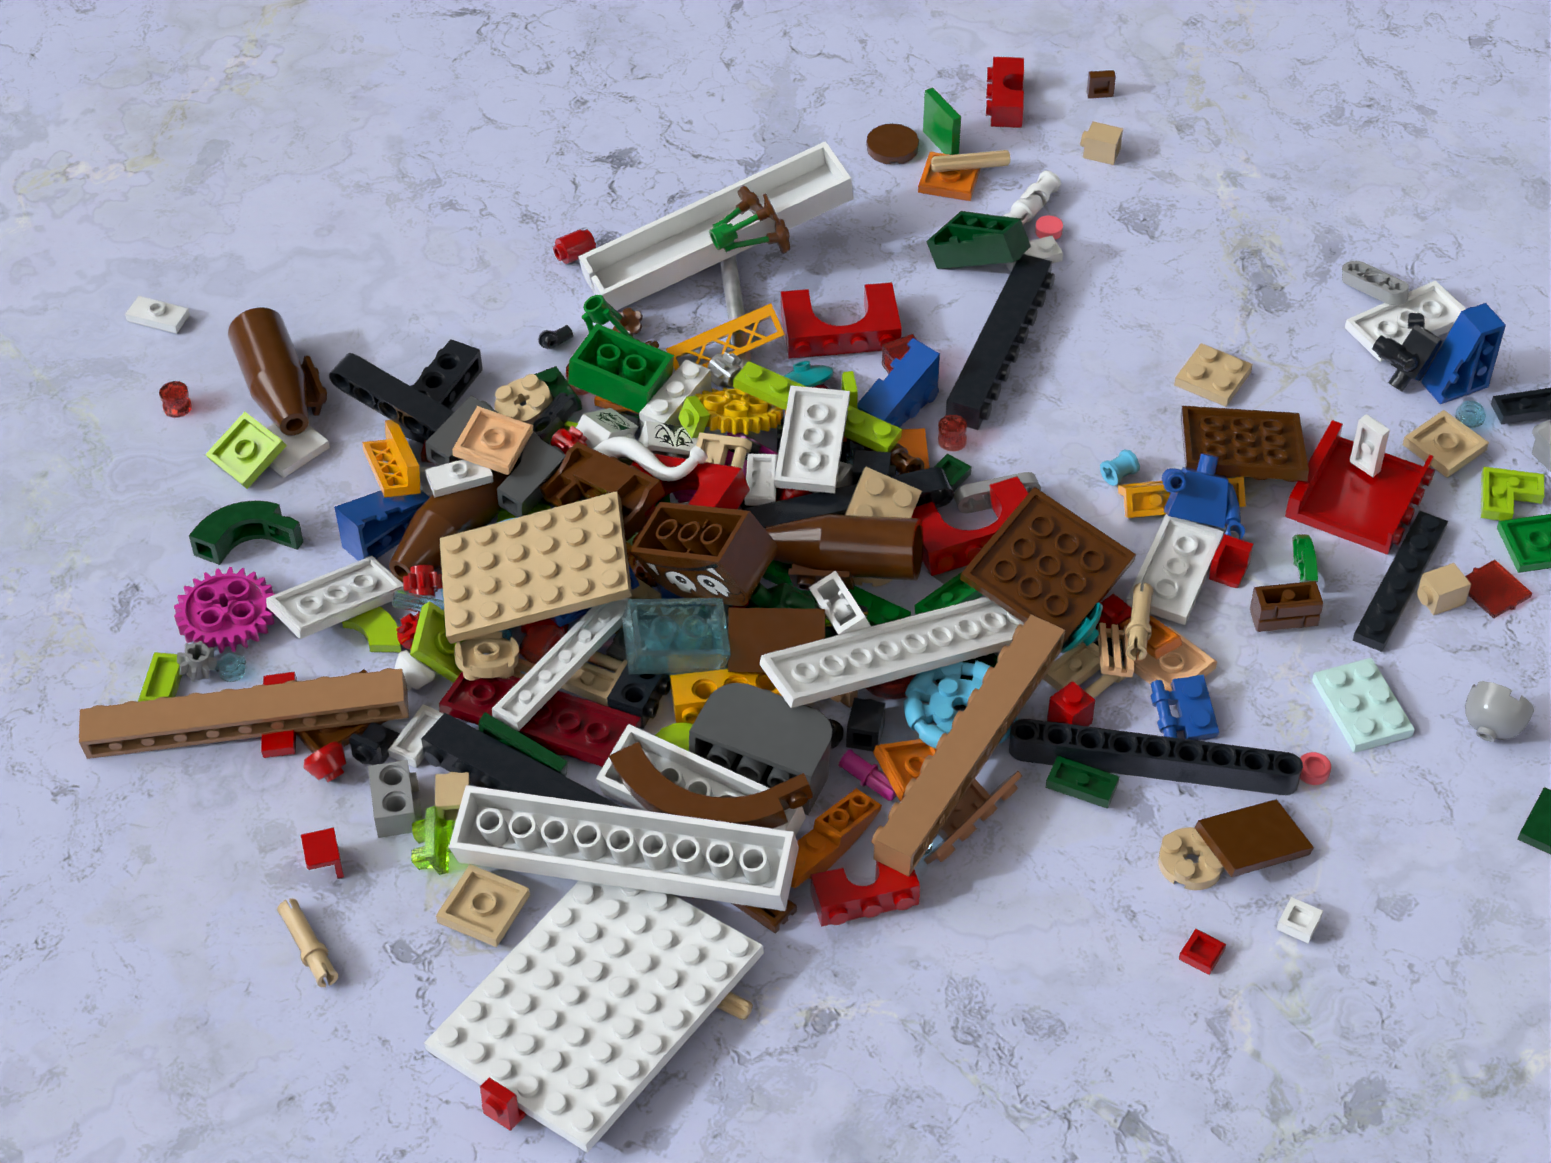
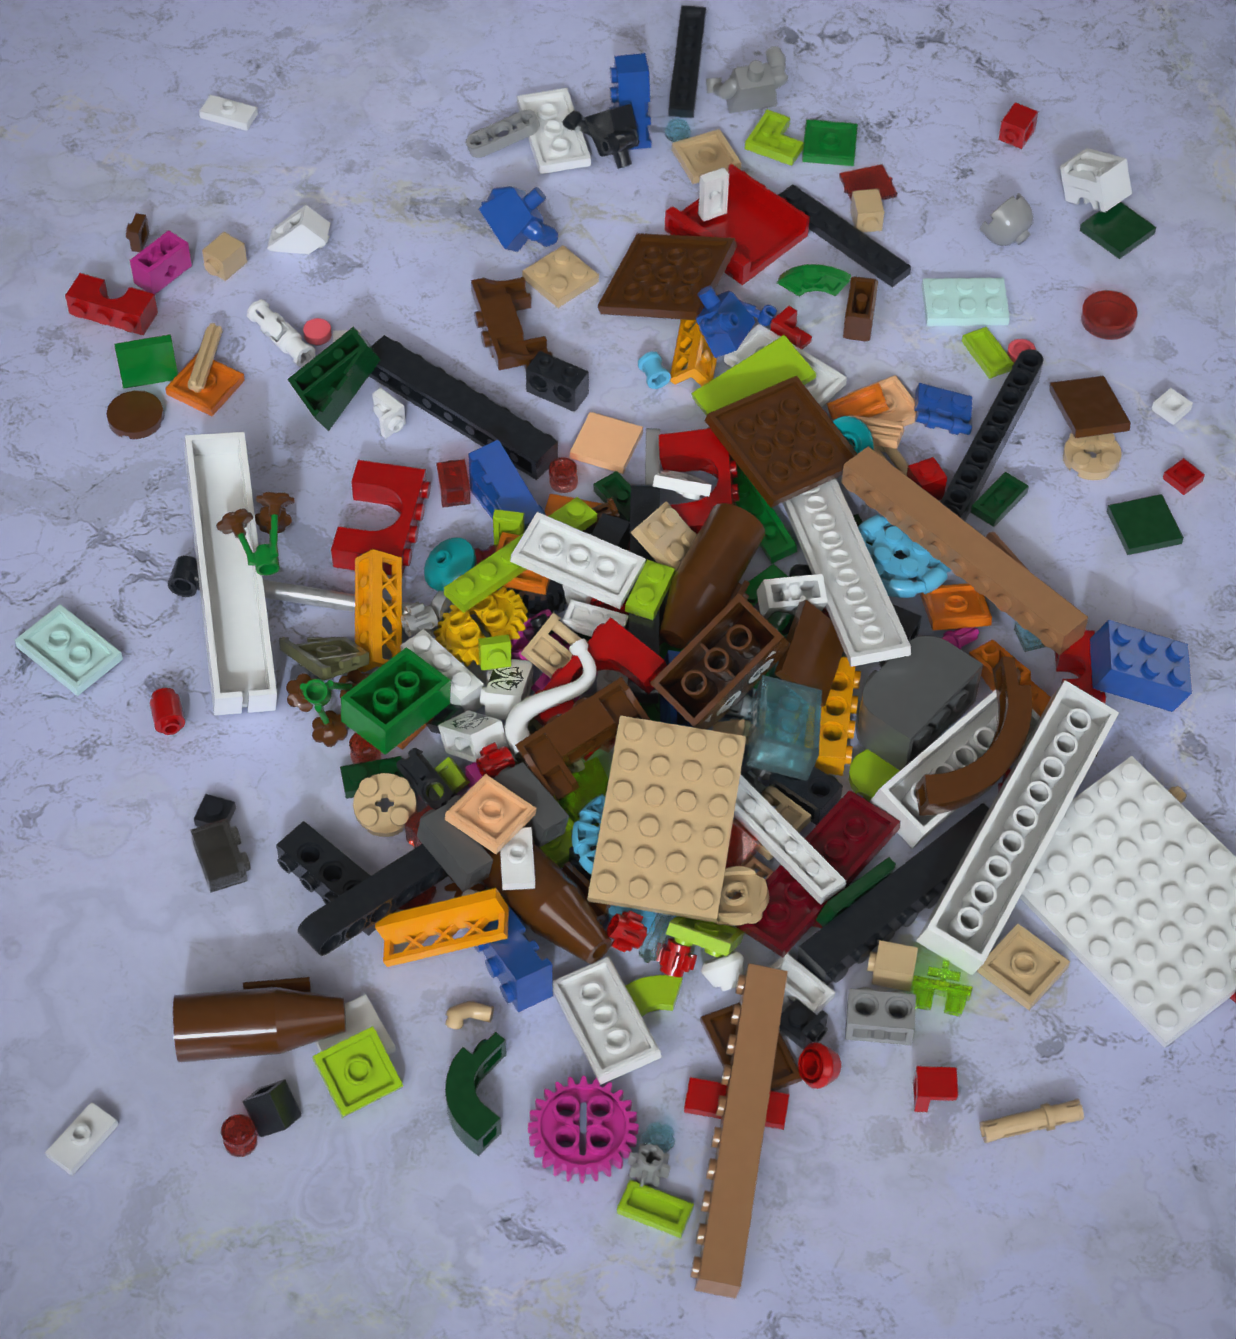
camera: 75 degrees left, 5 degrees up
(204, 411) = (272, 1108): none -> black panel
(325, 504) = (468, 1010): none -> tan arm
(438, 315) = (219, 854): none -> clear smoke brick
(485, 306) = (213, 810): none -> black plate
(550, 339) = (295, 762): black arm -> none
(618, 174) = (68, 649): none -> light aqua plate
(658, 317) = (326, 656): none -> olive wing
(806, 504) = (650, 590): none -> lime plate
(885, 932) = (1140, 666): none -> blue brick
(955, 503) = (682, 483): none -> white wing
(968, 297) = (389, 411): none -> white bracket
(1011, 454) = (606, 442): none -> light nougat tile
(1064, 398) = (557, 381): none -> black brick
(1066, 103) = (160, 262): none -> dark pink brick
(1111, 924) = (1144, 524): none -> dark green tile
(1115, 340) = (500, 323): none -> reddish brown bracket
(1138, 629) = (863, 405): tan pin -> none
(1158, 550) = (757, 372): none -> lime tile
(1159, 183) = (300, 233): none -> white slope
(1251, 314) = (516, 219): none -> blue torso
(1291, 101) = (228, 112): none -> white plate
(1299, 735) = (987, 352): none -> lime tile
(1413, 838) = (1109, 314): none -> clear red piece

